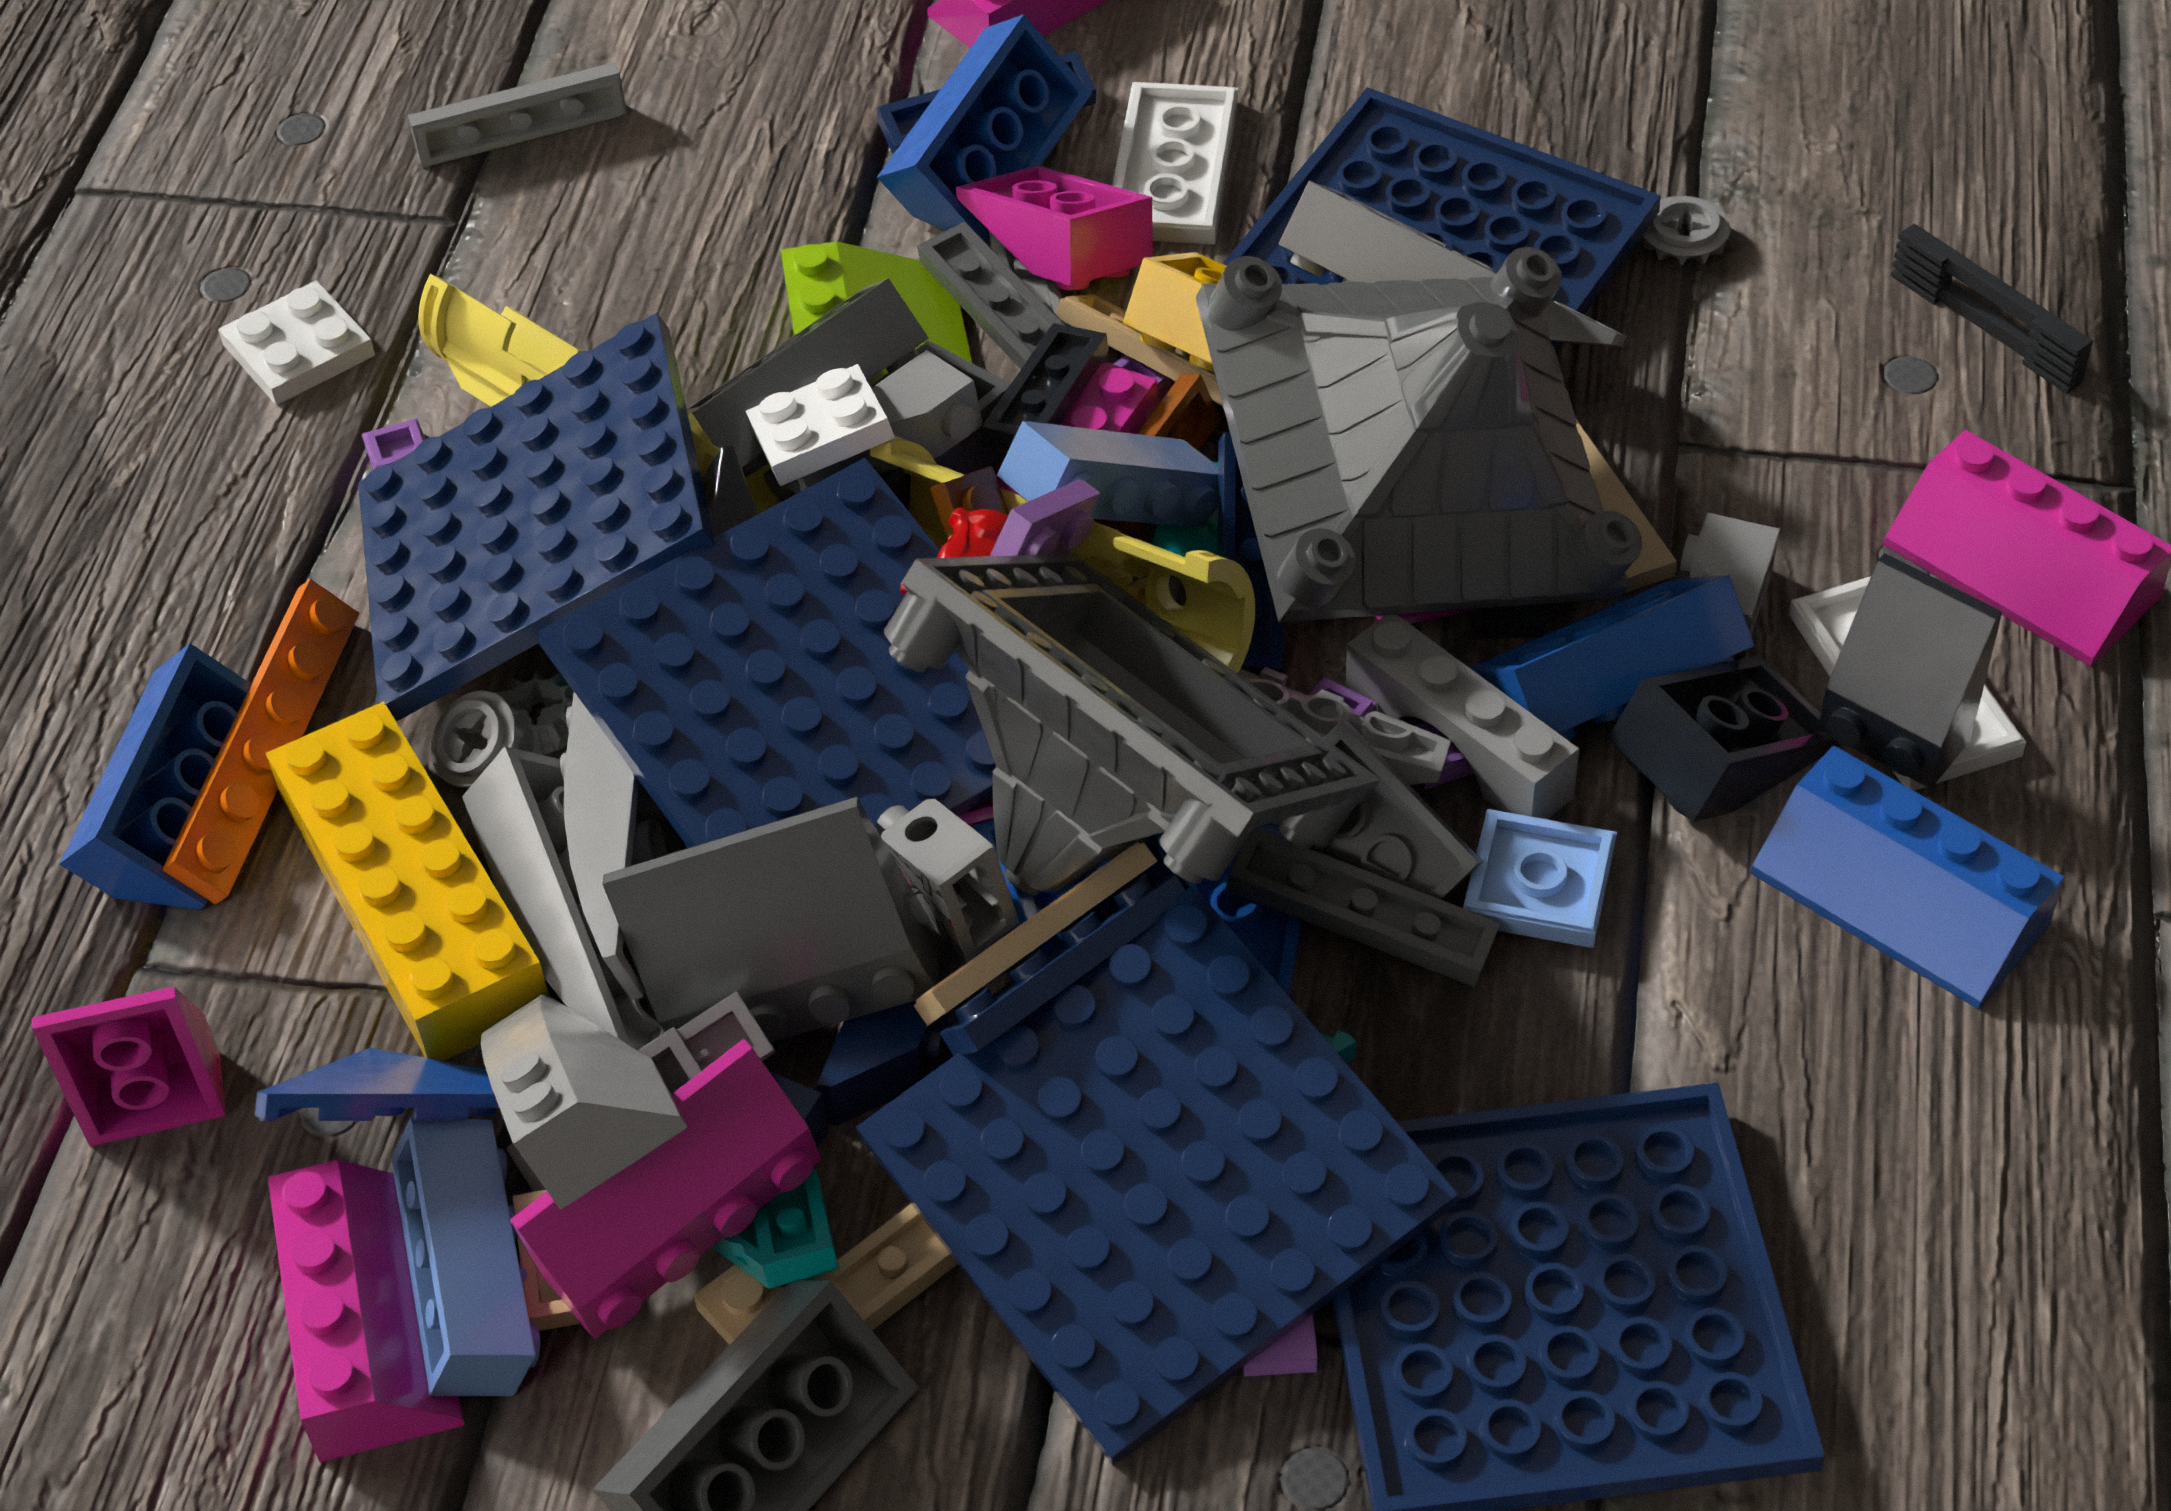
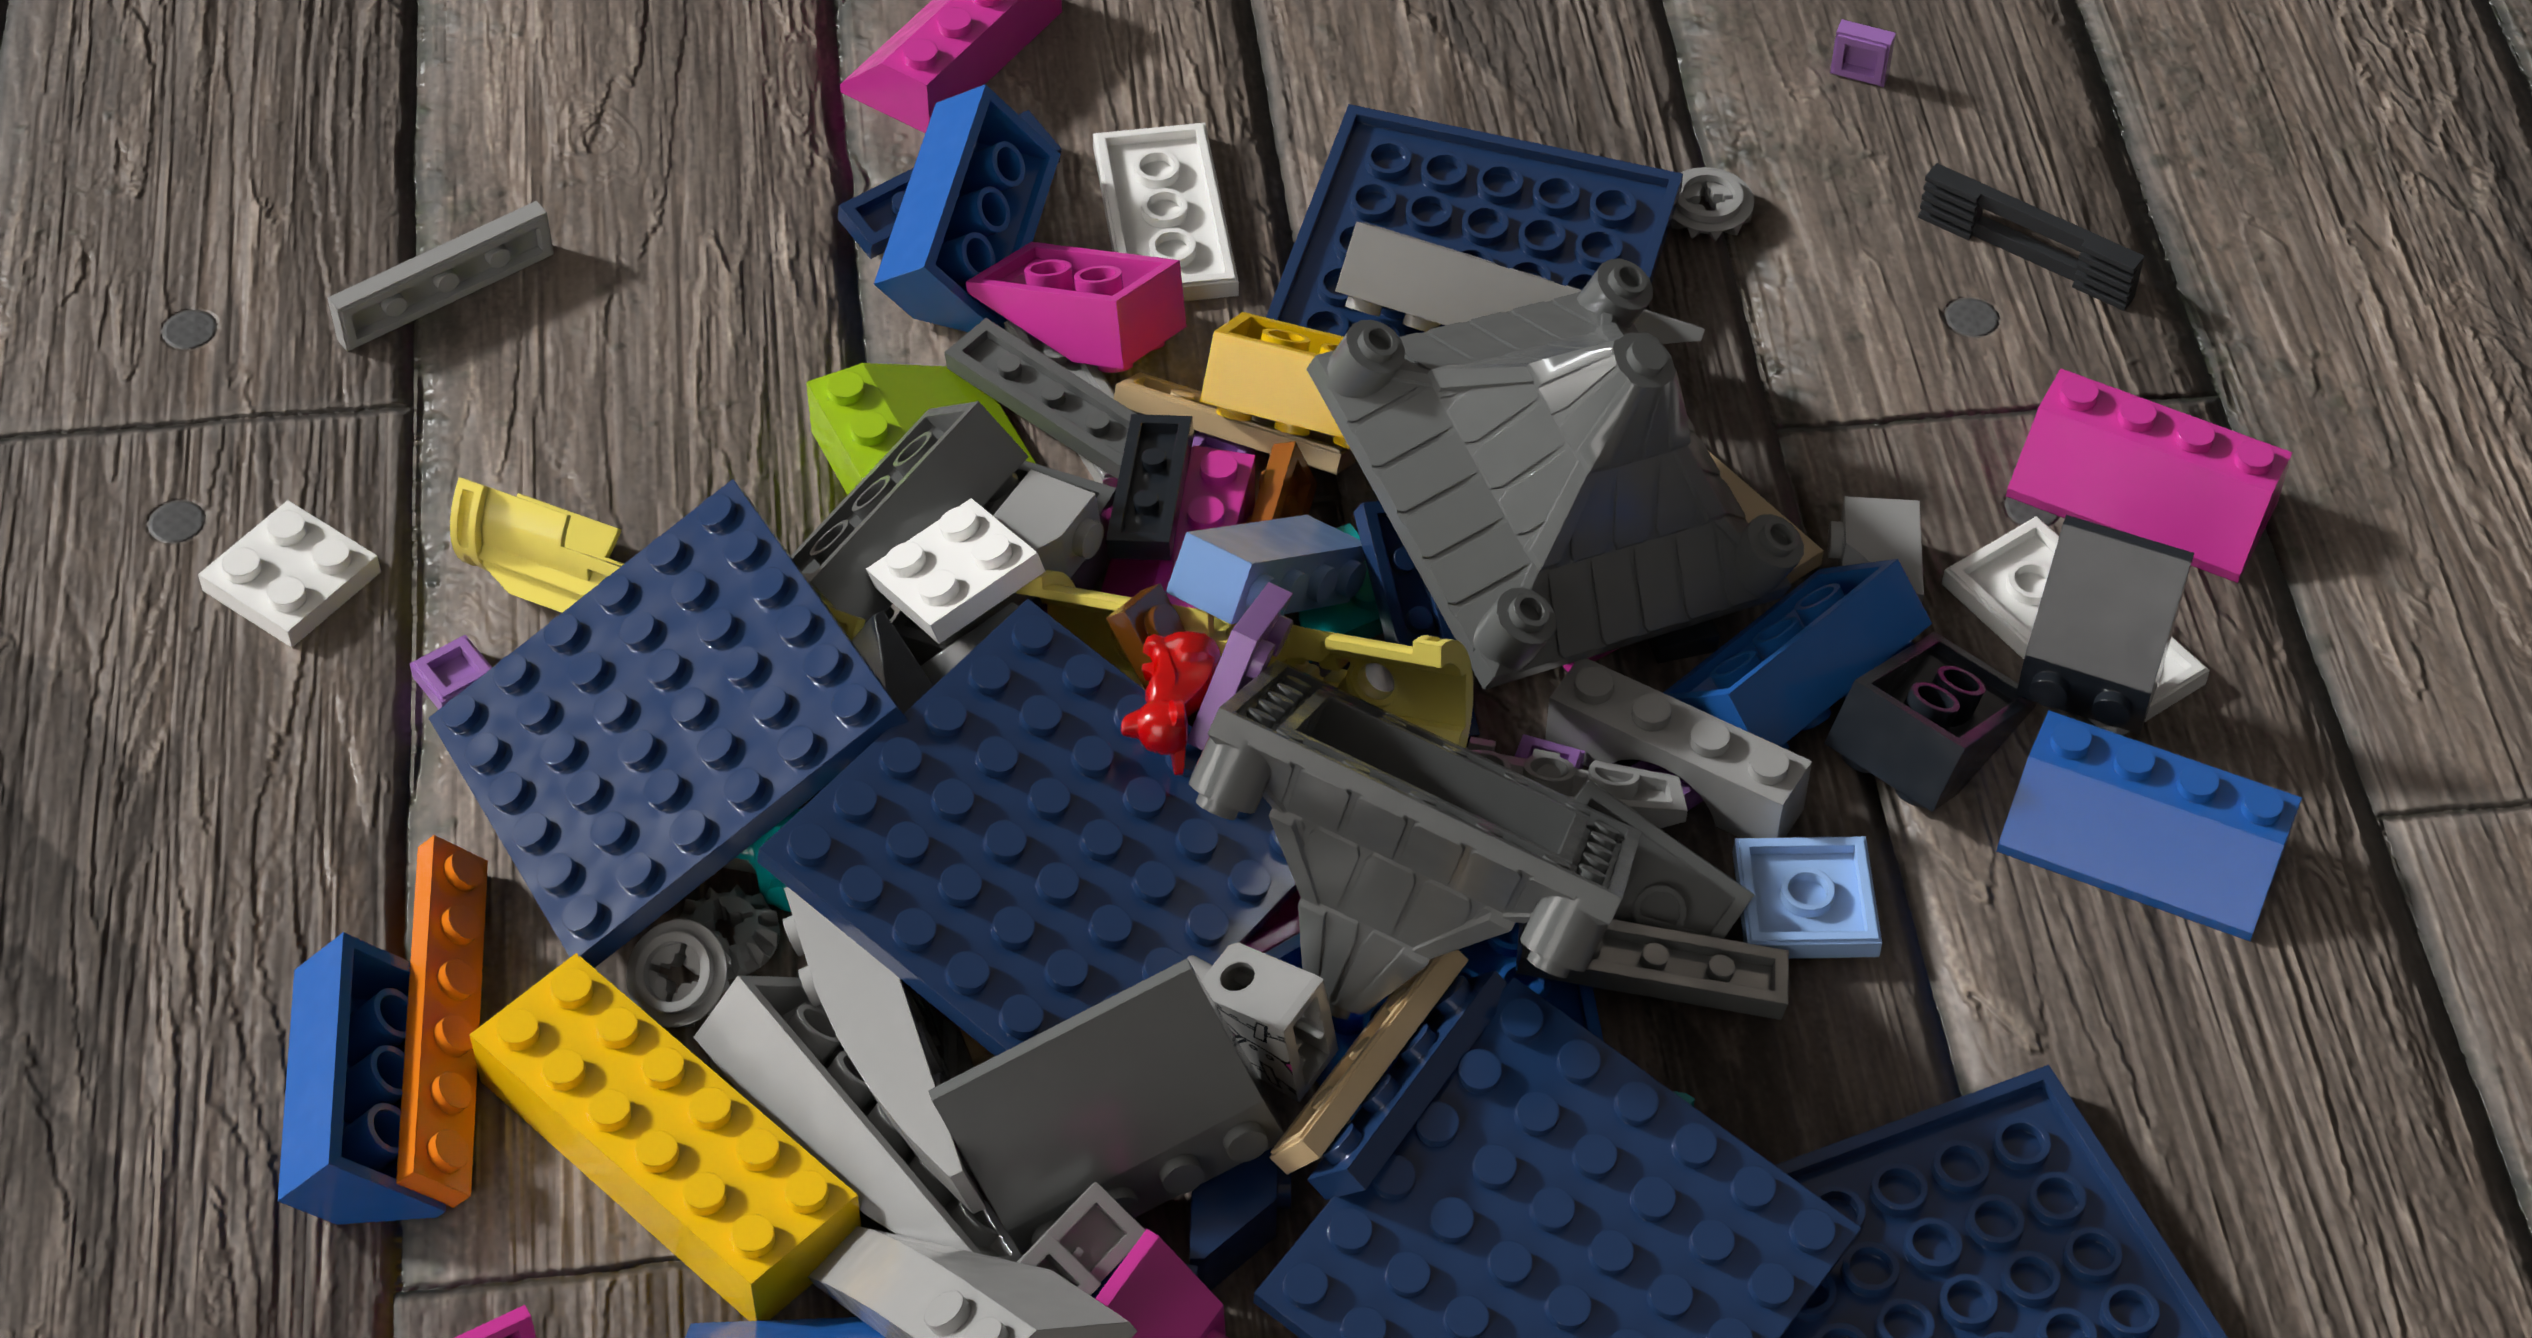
camera: 20 degrees left, 0 degrees up
(1884, 116) = (1862, 53): none -> medium lavender tile

